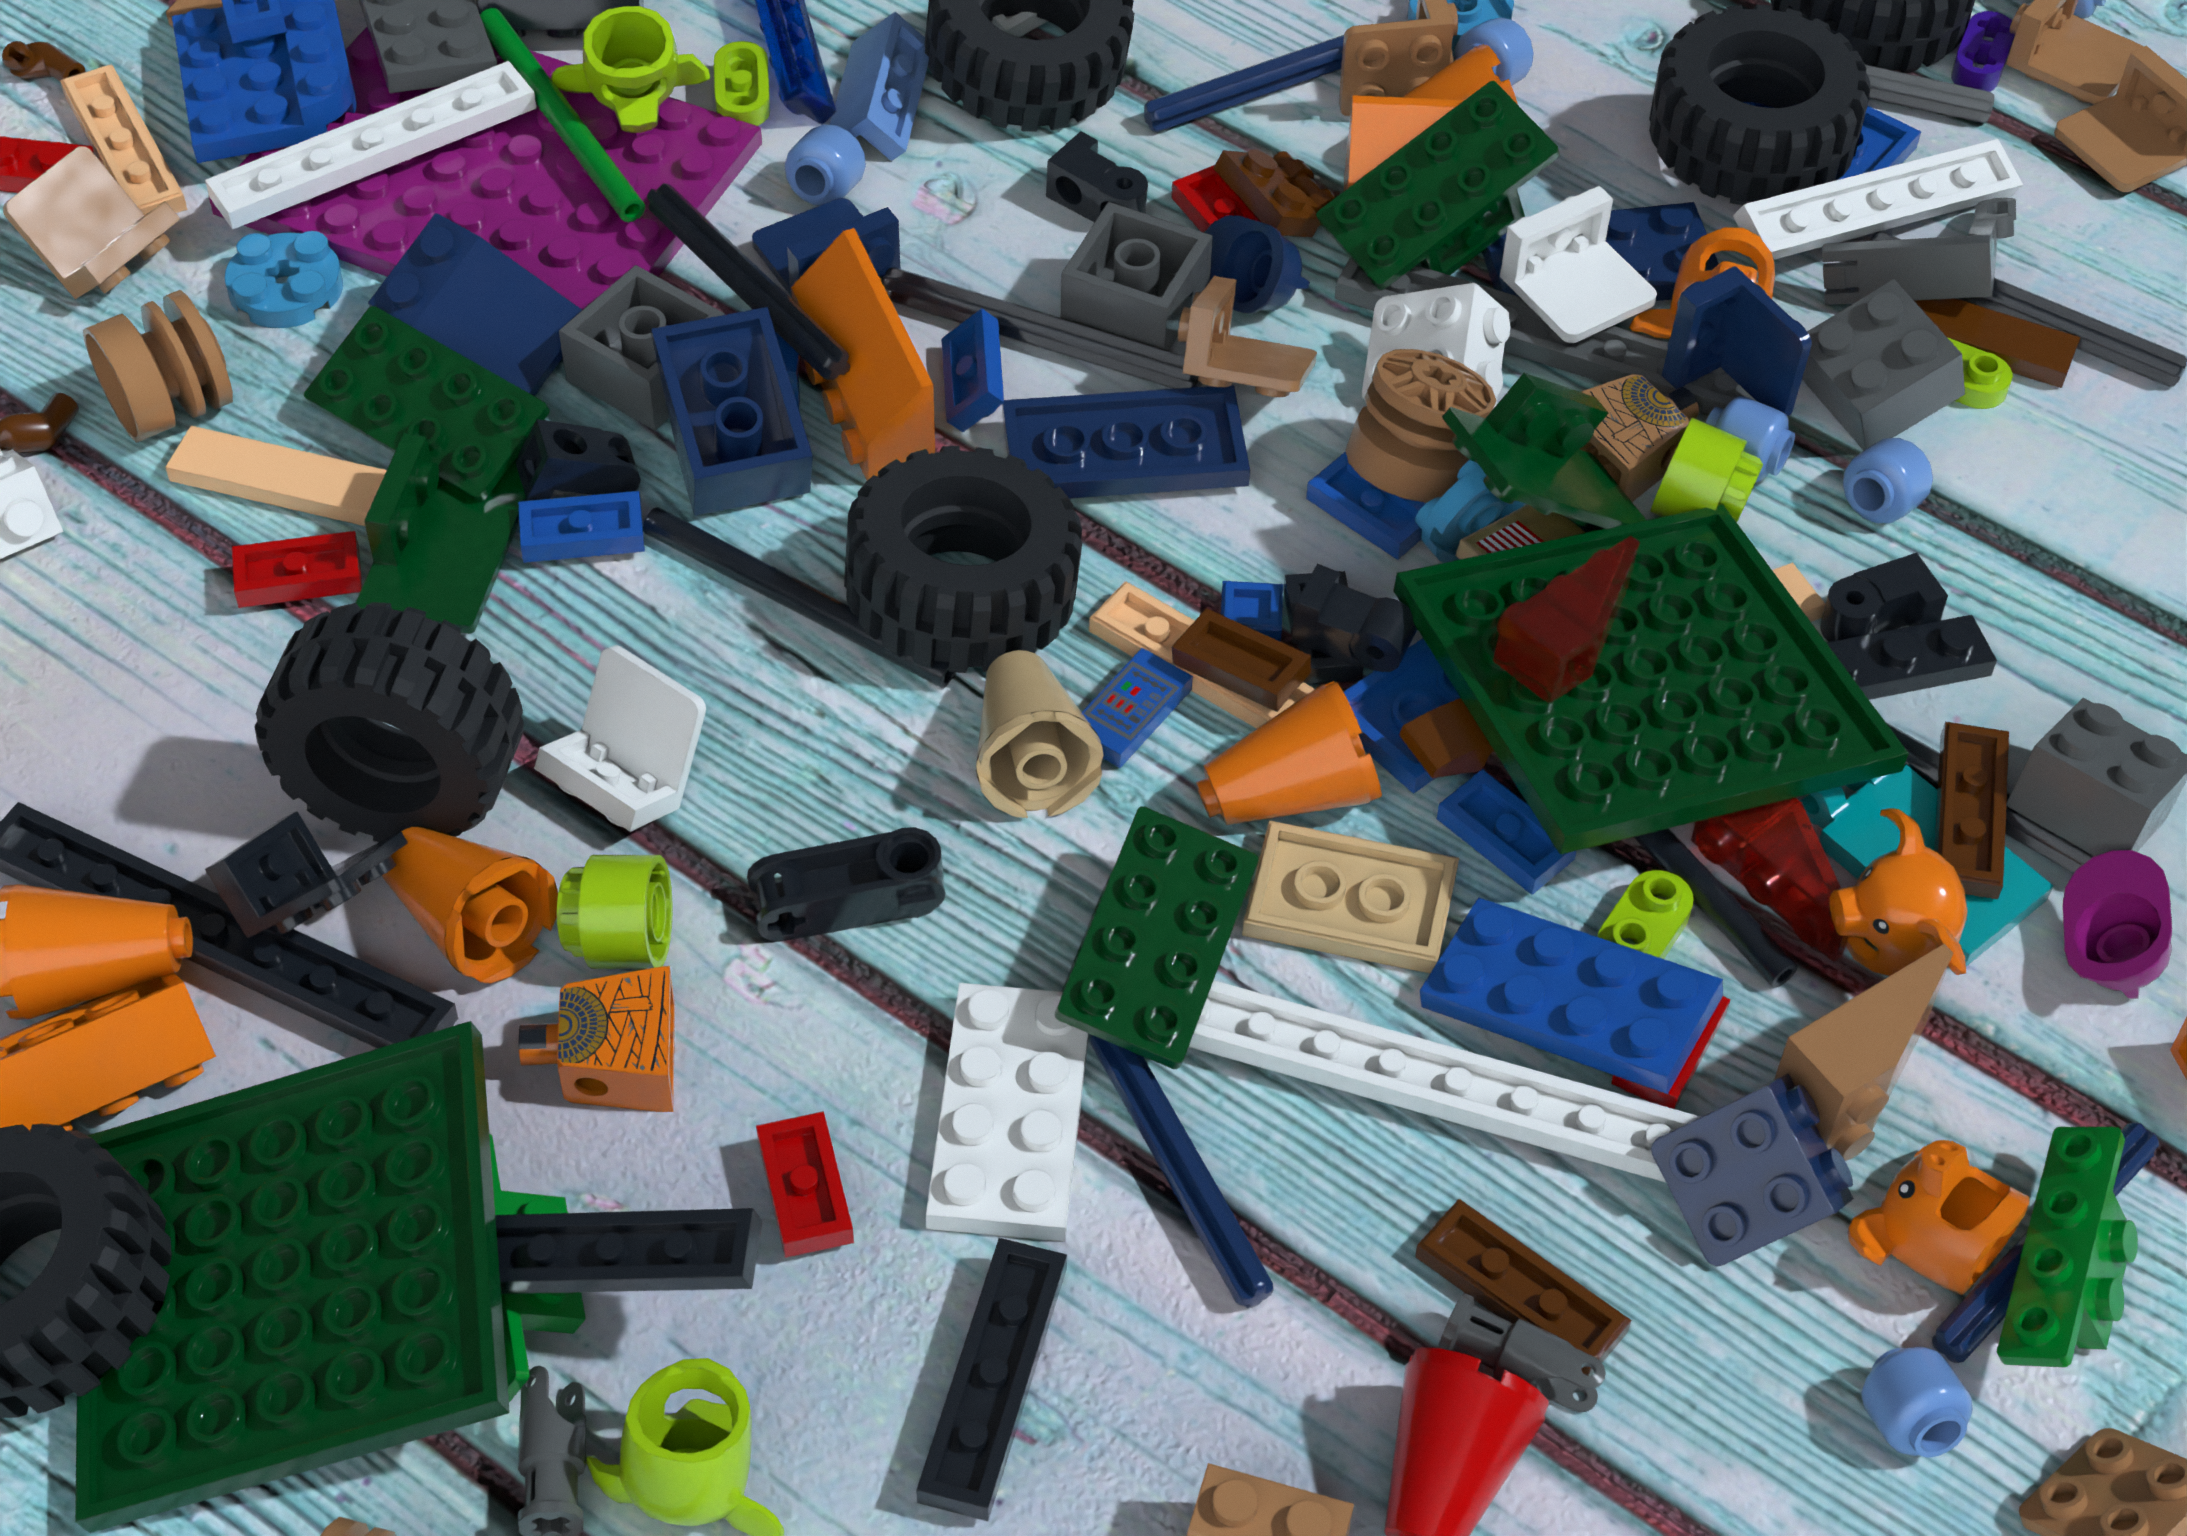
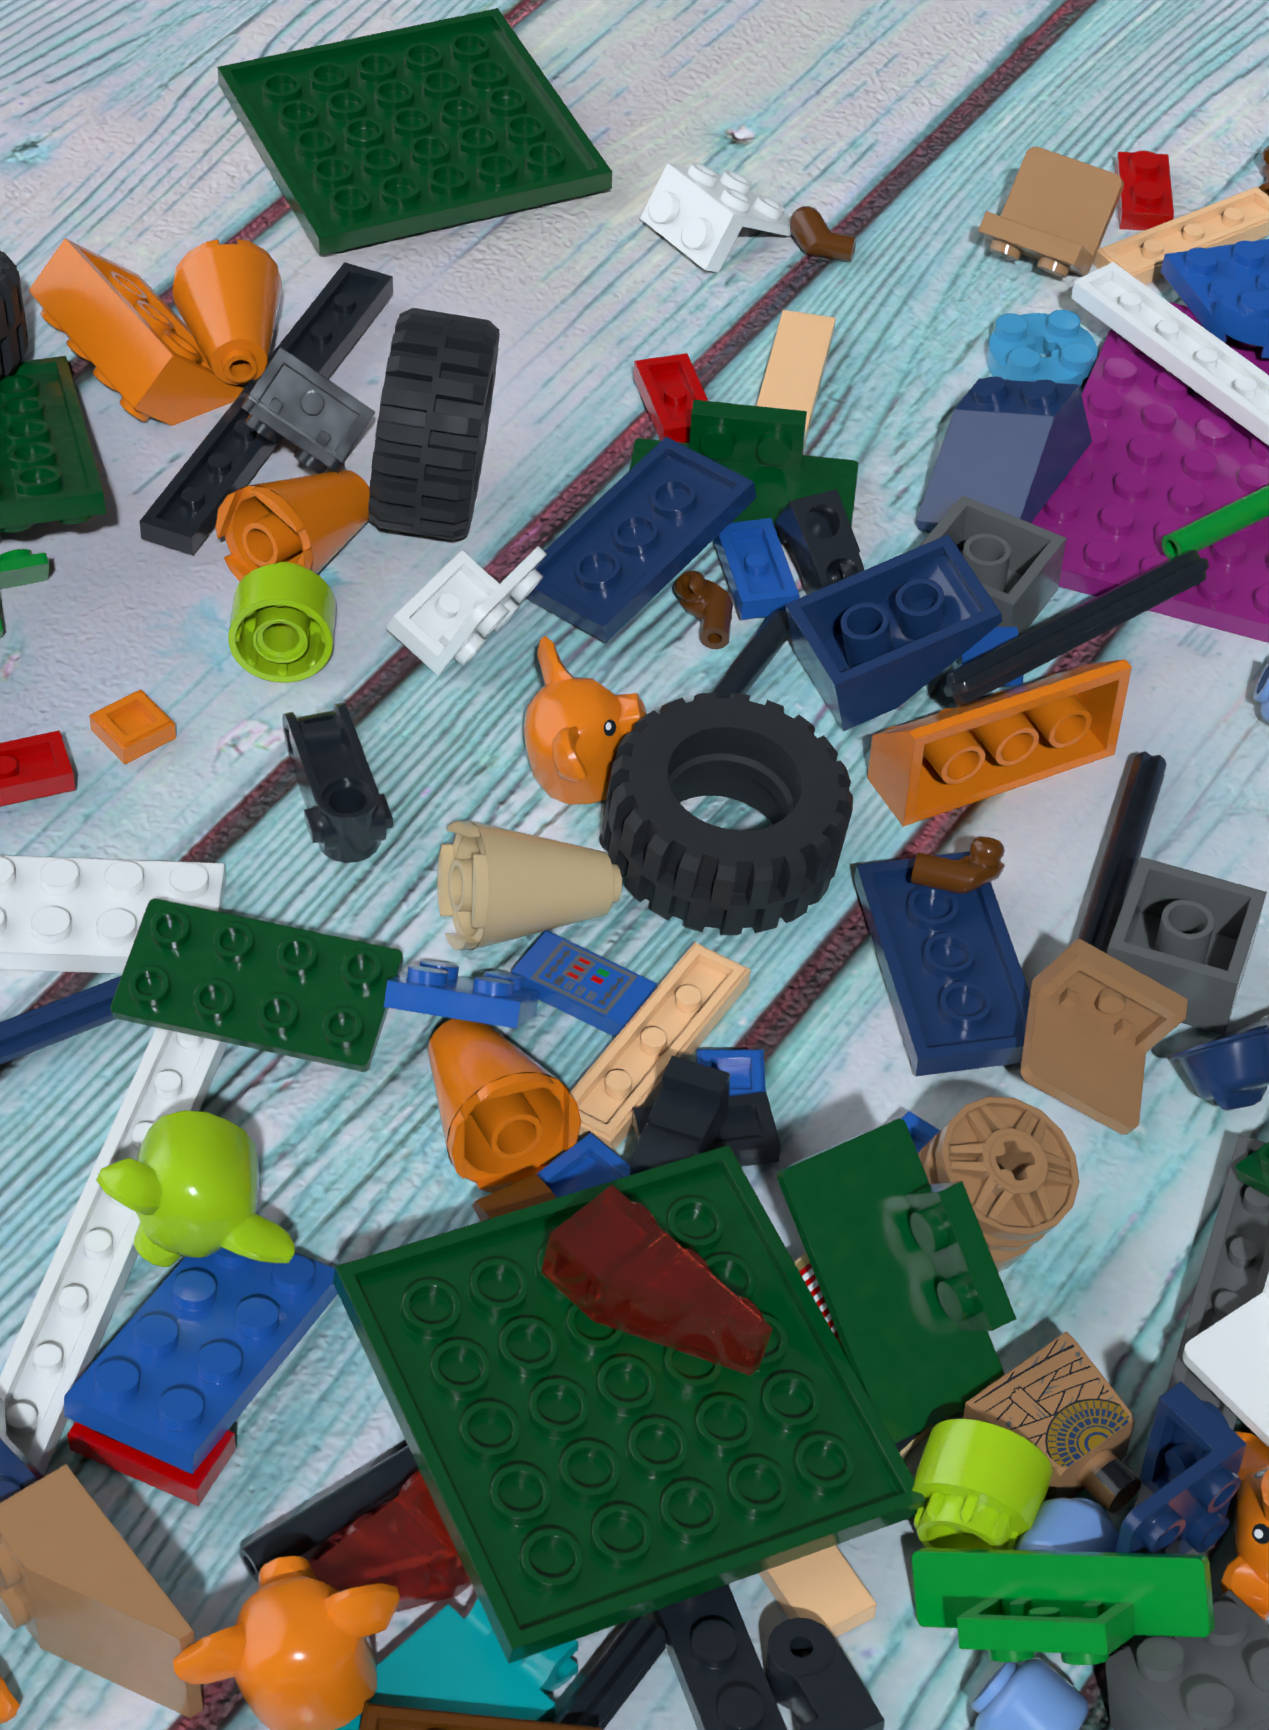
camera: 85 degrees right, 5 degrees down
(169, 361) = (875, 270): medium nougat wheel -> none
(401, 381) = (881, 445): dark green bracket -> none
(531, 601) = (639, 538): none -> dark blue plate
(611, 1041) = (155, 641): orange torso -> none
(627, 569) = (708, 604): none -> reddish brown arm
(731, 1075) = (132, 726): none -> orange tile
(798, 241) = (1182, 709): dark blue bracket -> none
(832, 668) = (575, 731): none -> orange piece
(972, 370) = (1050, 830): blue plate -> none
(1042, 403) = (963, 874): none -> reddish brown arm
(1182, 770) = (438, 991): none -> blue plate
(1241, 659) = (633, 1052): reddish brown tile -> none
(1351, 897) = (350, 1167): tan tile -> none
(1444, 969) = (196, 1192): none -> lime piece
(1447, 321) = (1138, 1234): white bracket -> none
(1650, 920) = (312, 1431): lime plate -> none
(1827, 432) = (1060, 1599): none -> green bracket

